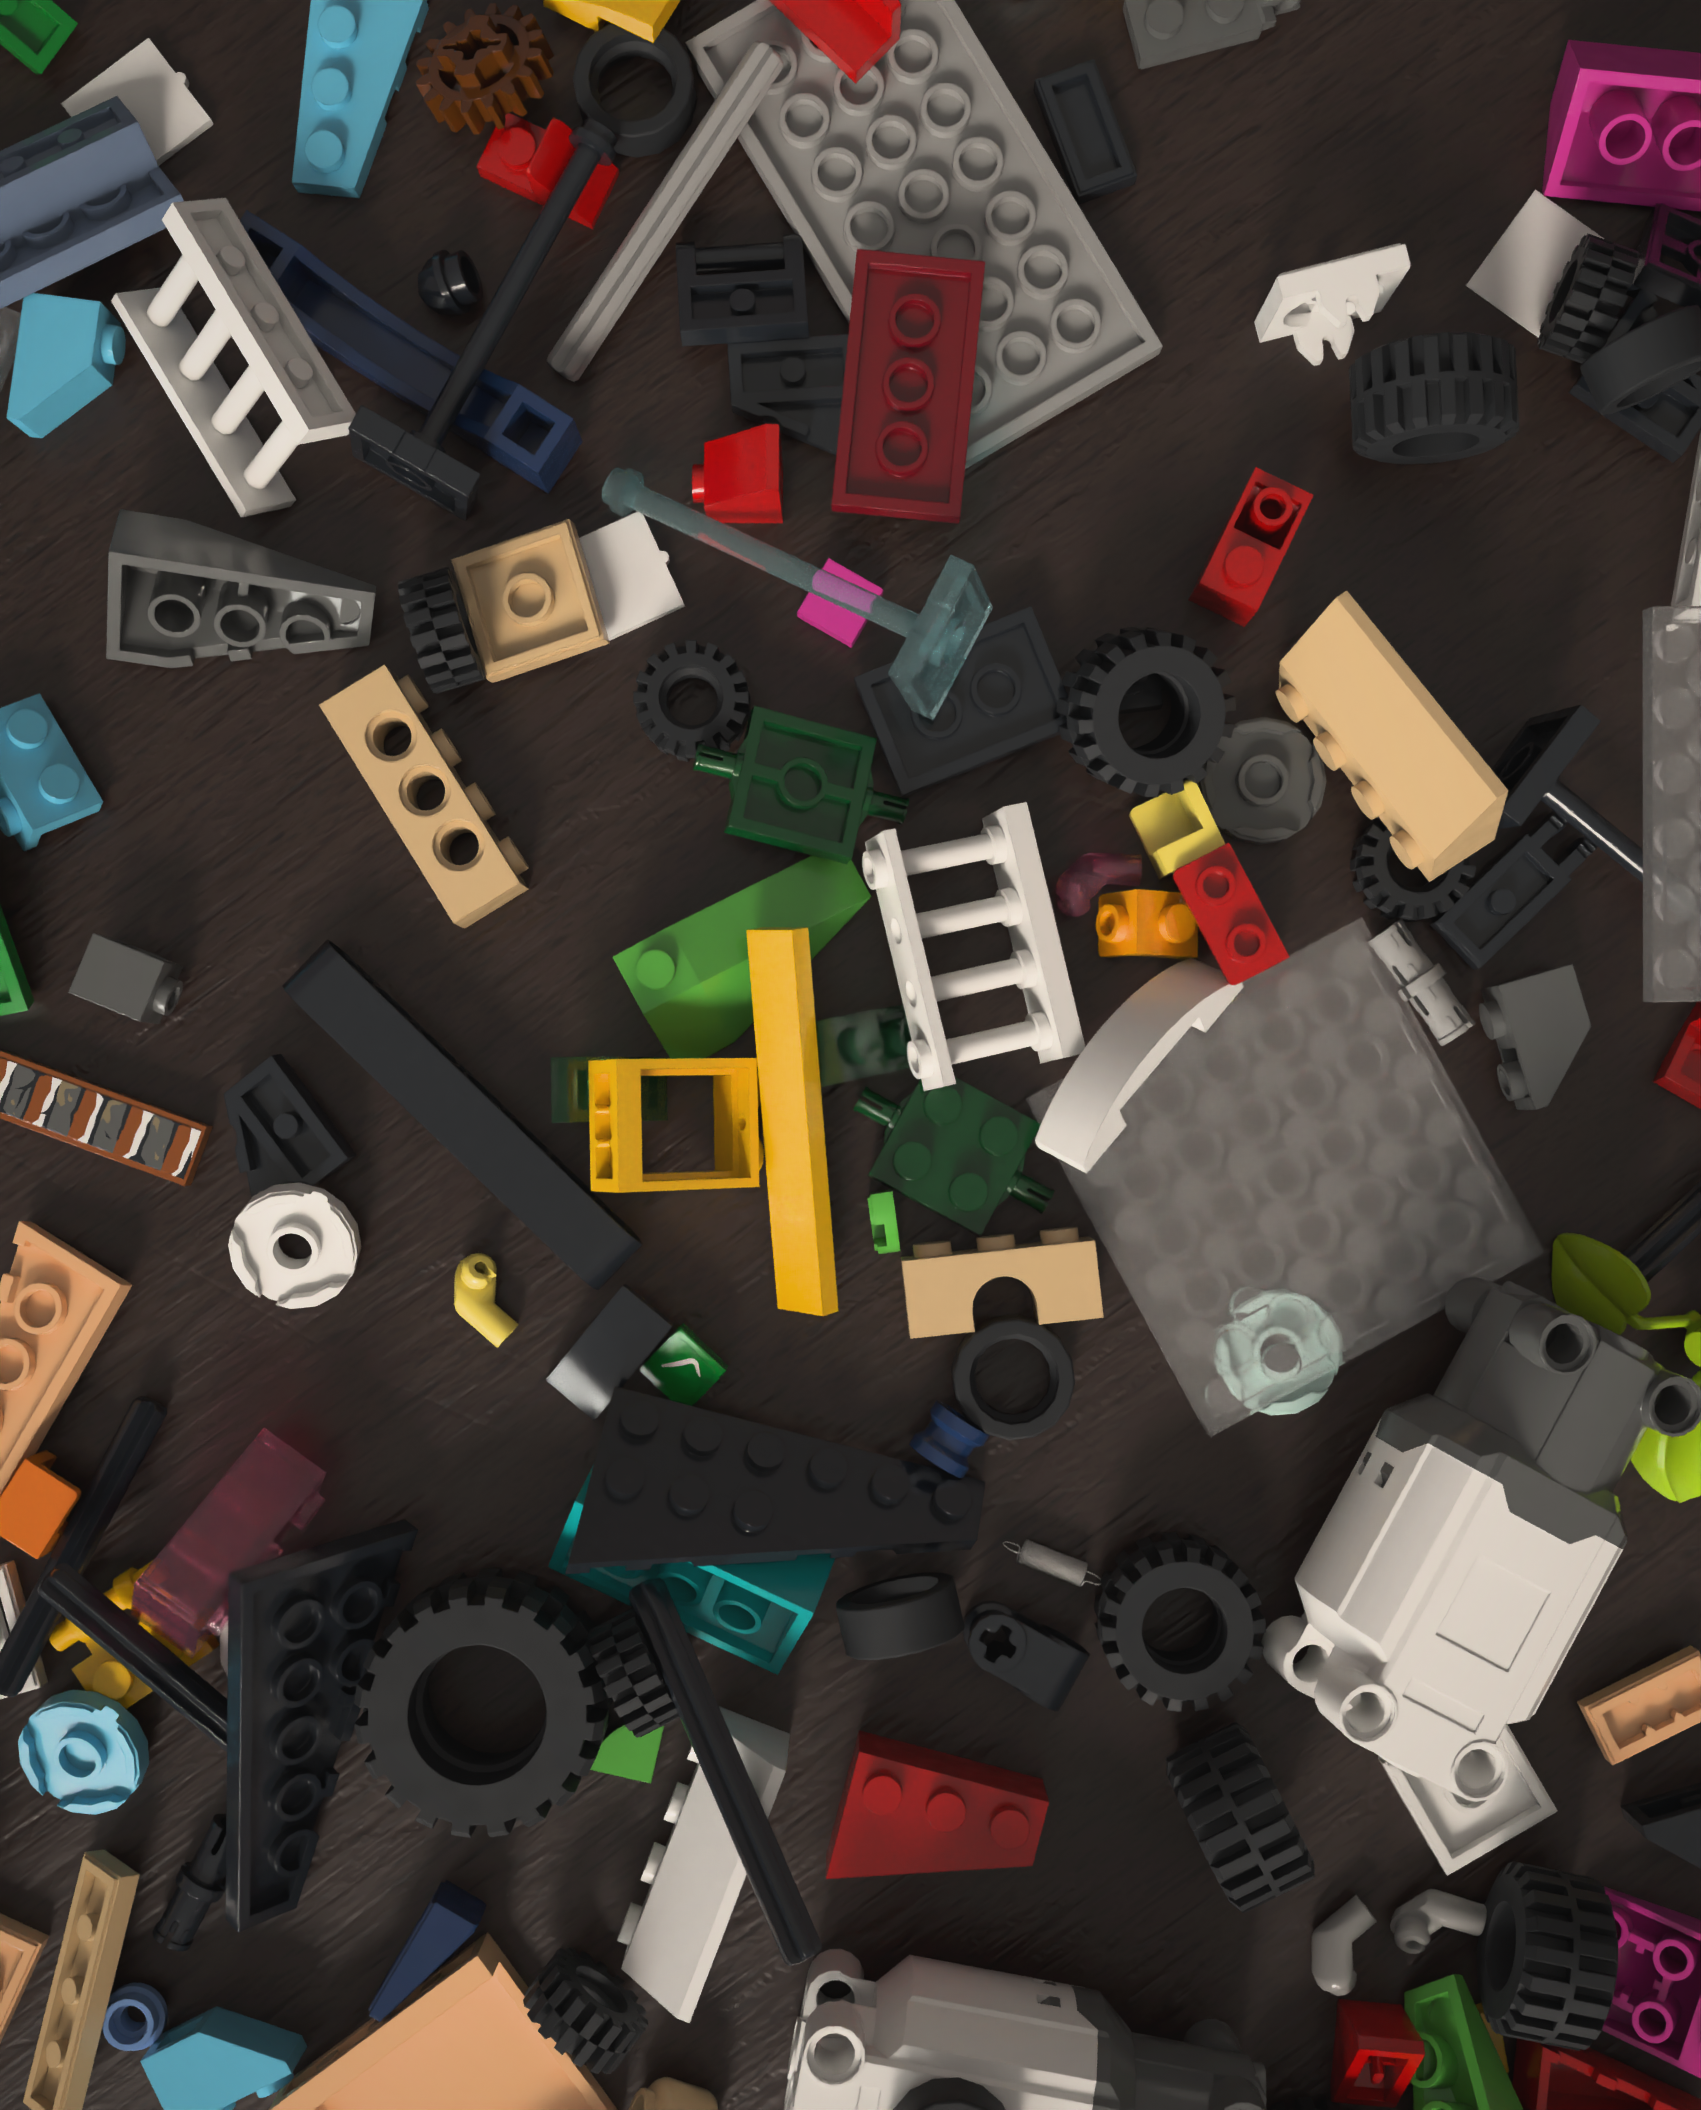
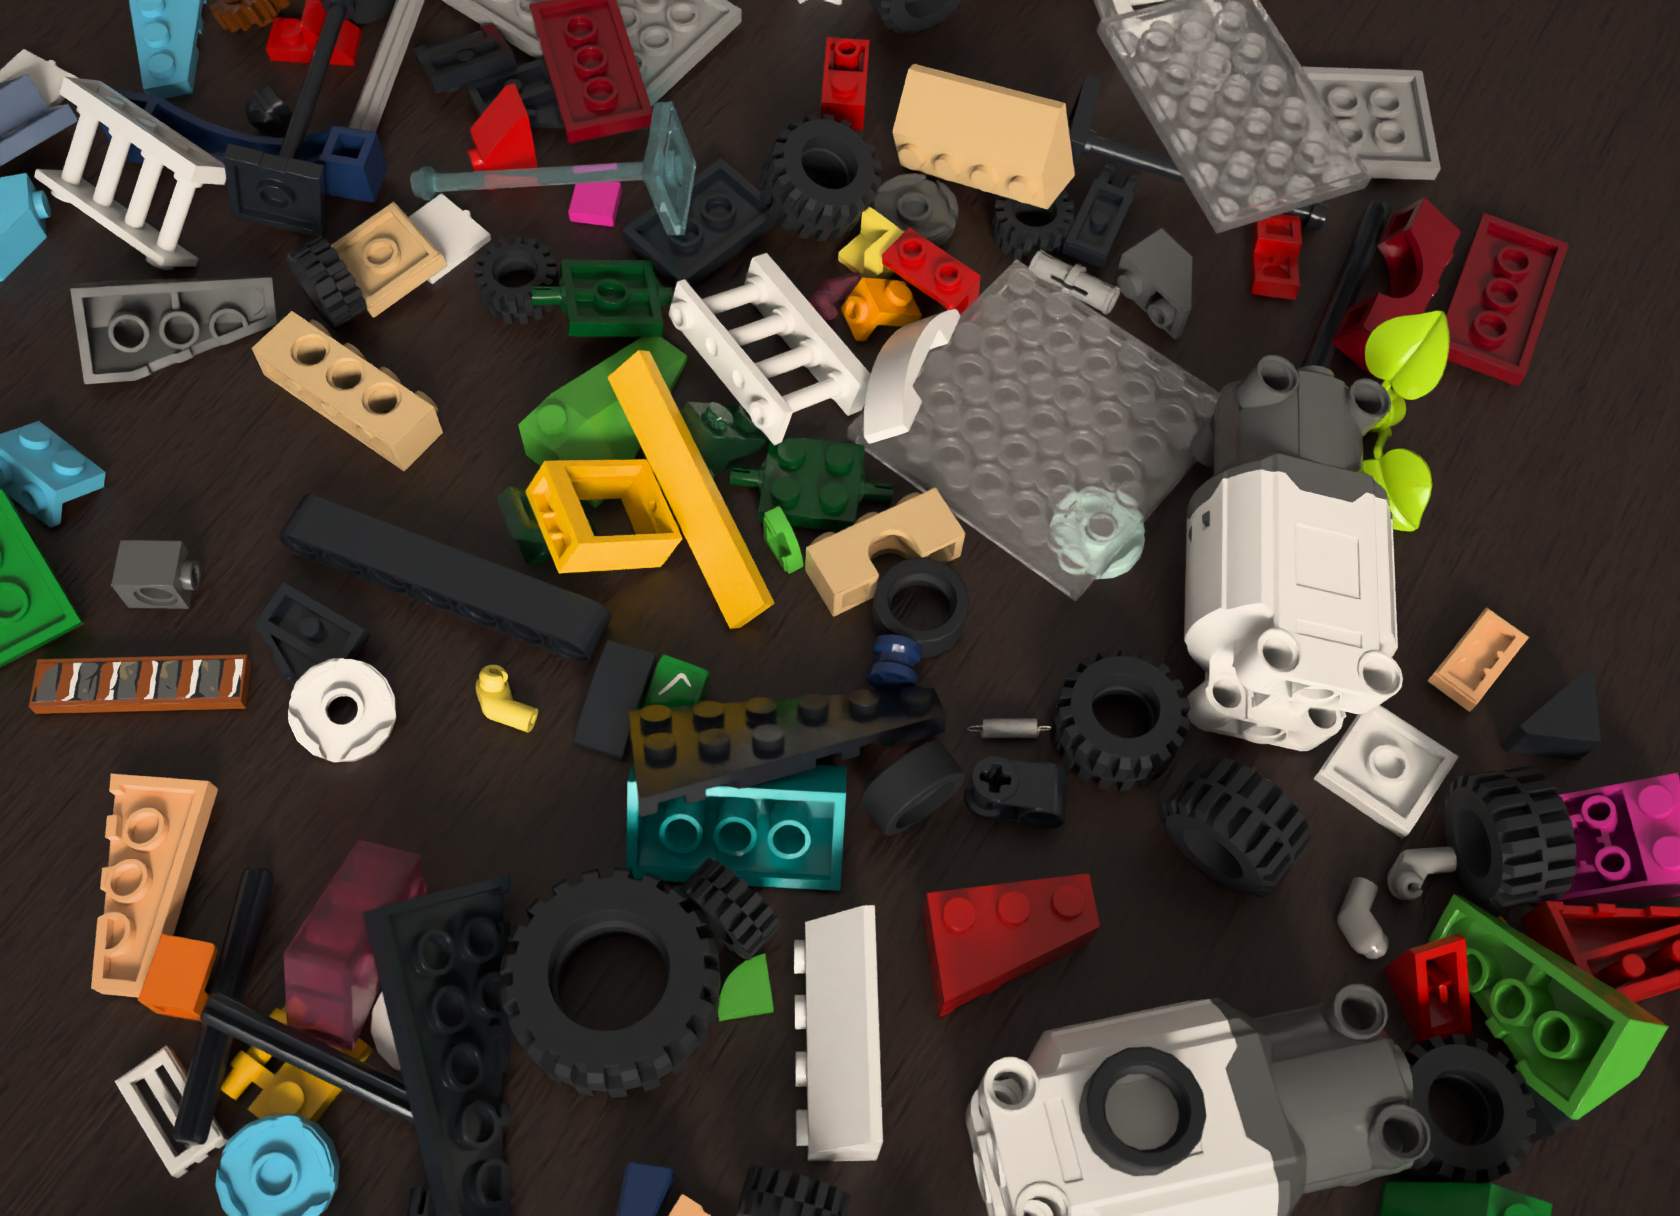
camera: 30 degrees left, 25 degrees down
(725, 1773) = (833, 929): black axle -> none

